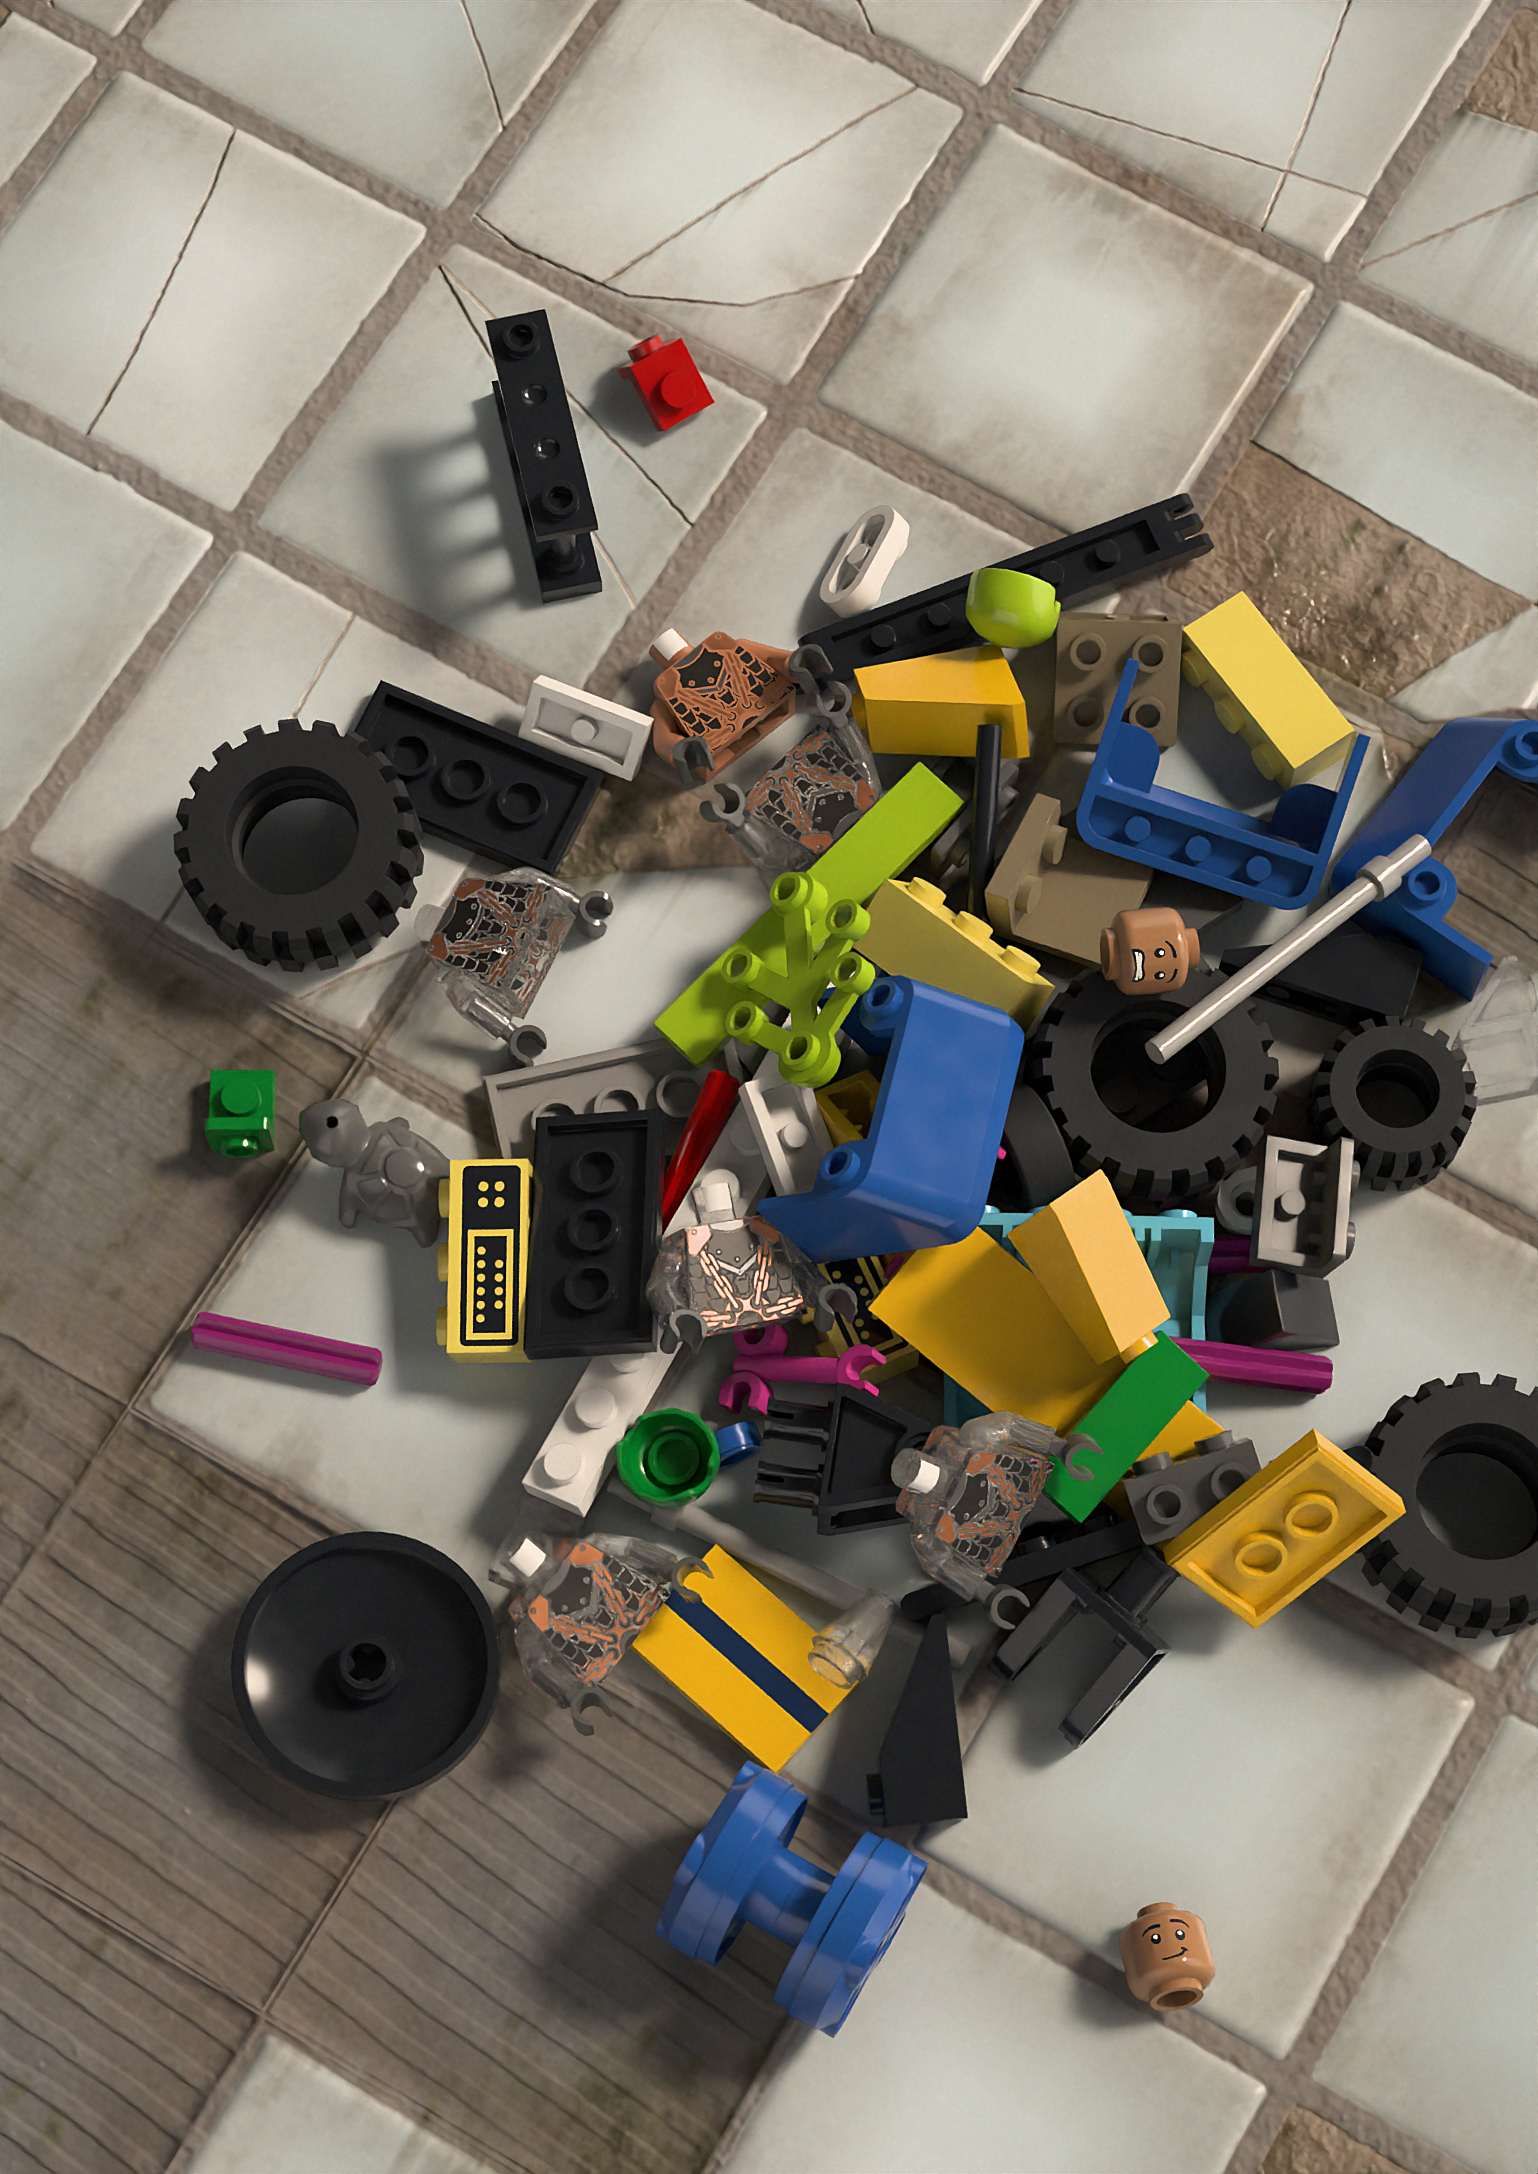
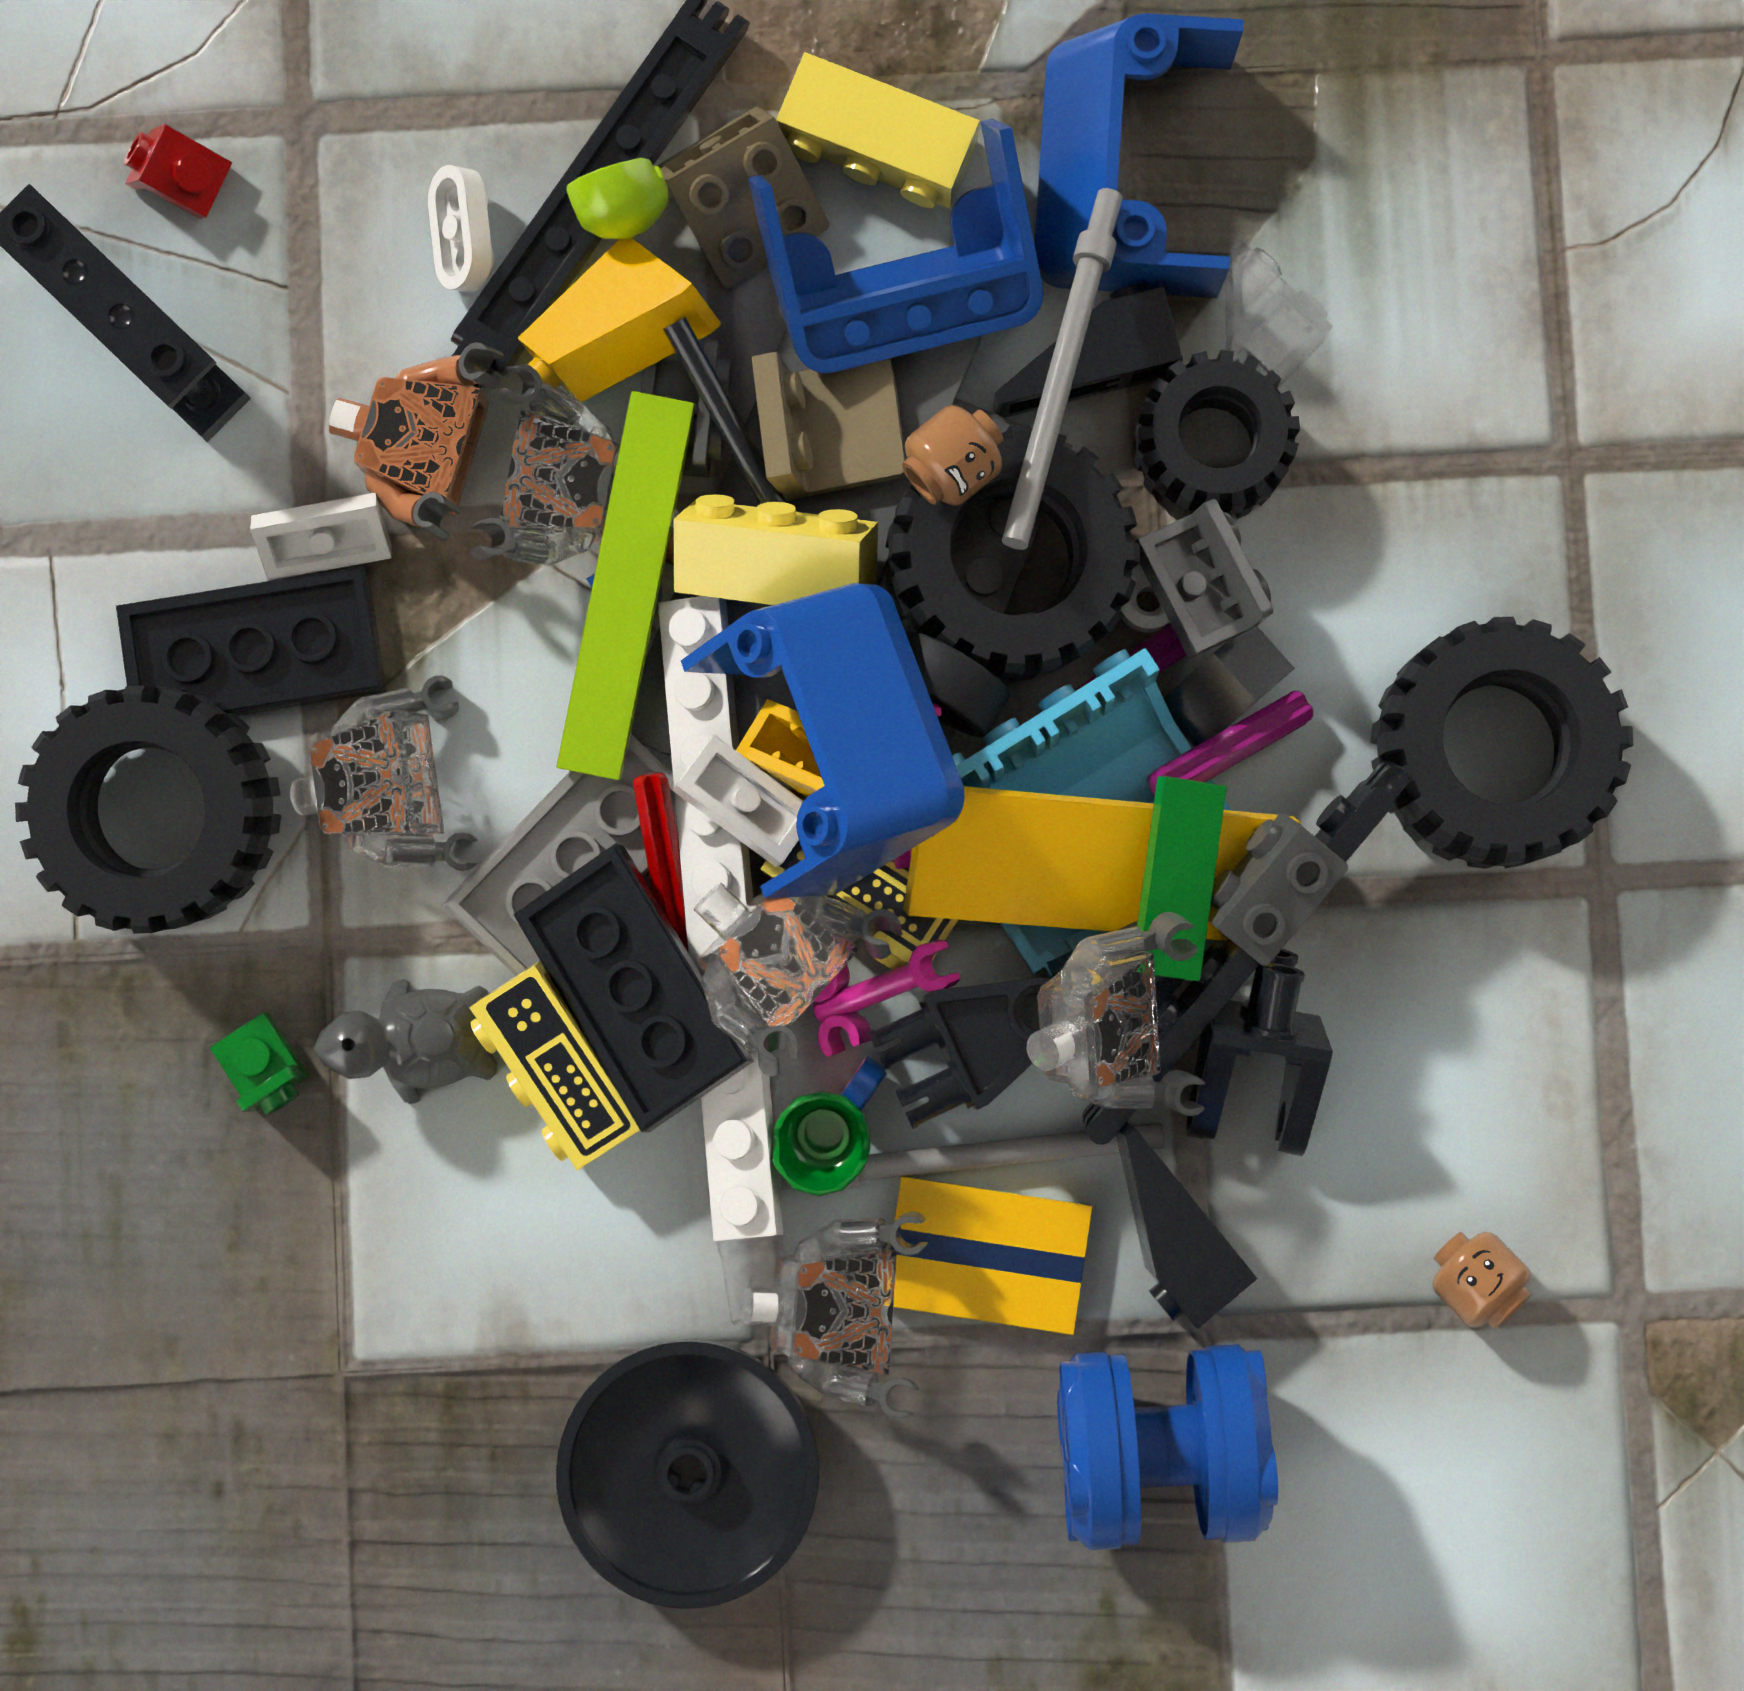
camera: 25 degrees left, 15 degrees up
(286, 1348) = (437, 1242): magenta axle -> none
(810, 1051) = (712, 722): lime plant -> none
(851, 1642) = (1069, 1188): clear cone -> none
(1094, 1270) = (1081, 767): yellow slope -> none
(1284, 1529) = (1372, 881): yellow tile -> none

